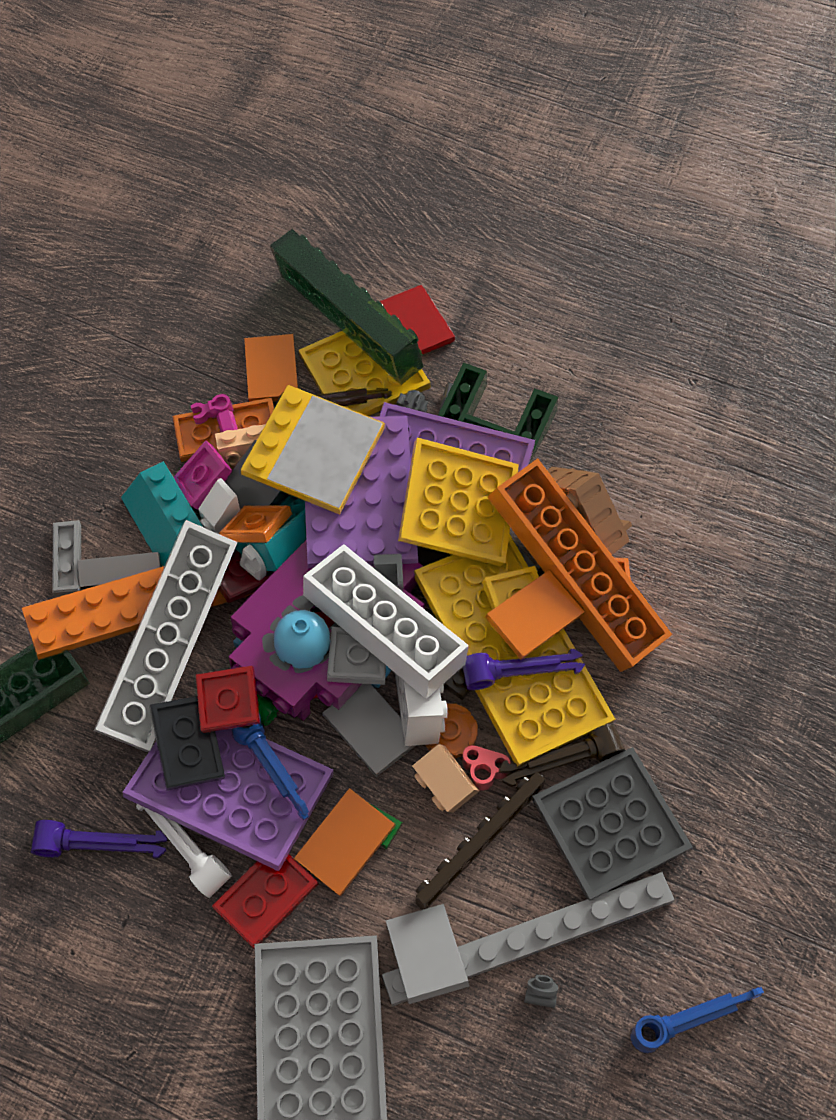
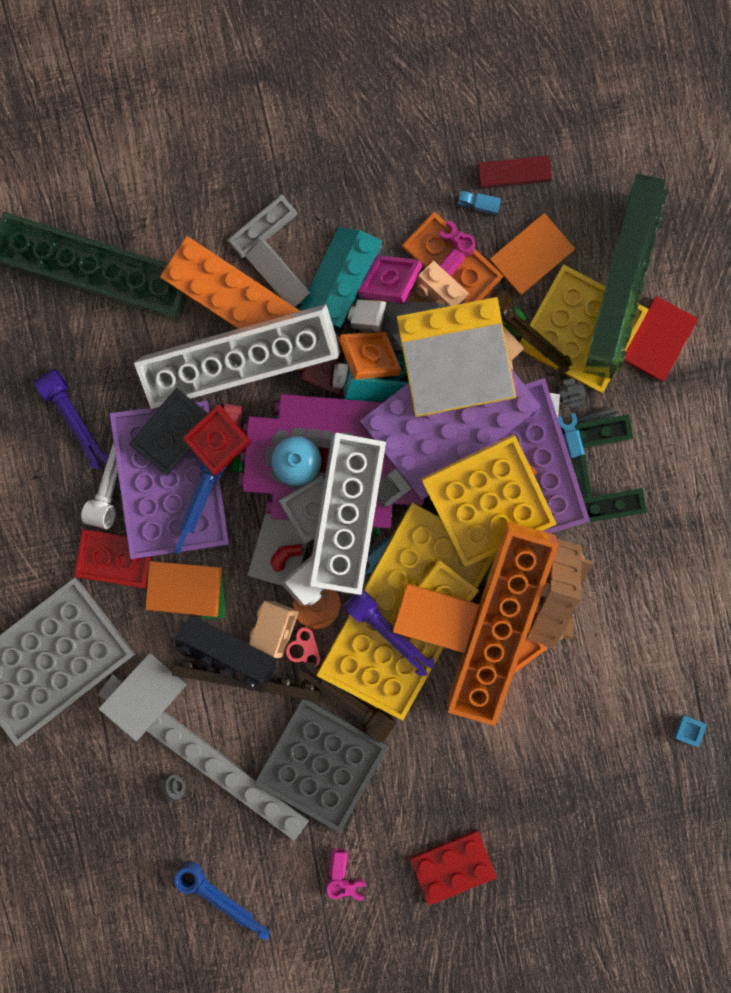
camera: 55 degrees right, 25 degrees up
(192, 341) = (514, 172): none -> dark red tile
(195, 378) = (480, 202): none -> dark azure bar
(380, 725) = (282, 554): none -> red arm
(438, 836) = (225, 653): none -> black brick
(450, 411) = (572, 437): none -> dark azure bar
(745, 889) = (339, 887): none -> dark pink bar
(778, 490) = (690, 730): none -> dark azure plate
(791, 767) = (453, 867): none -> red plate

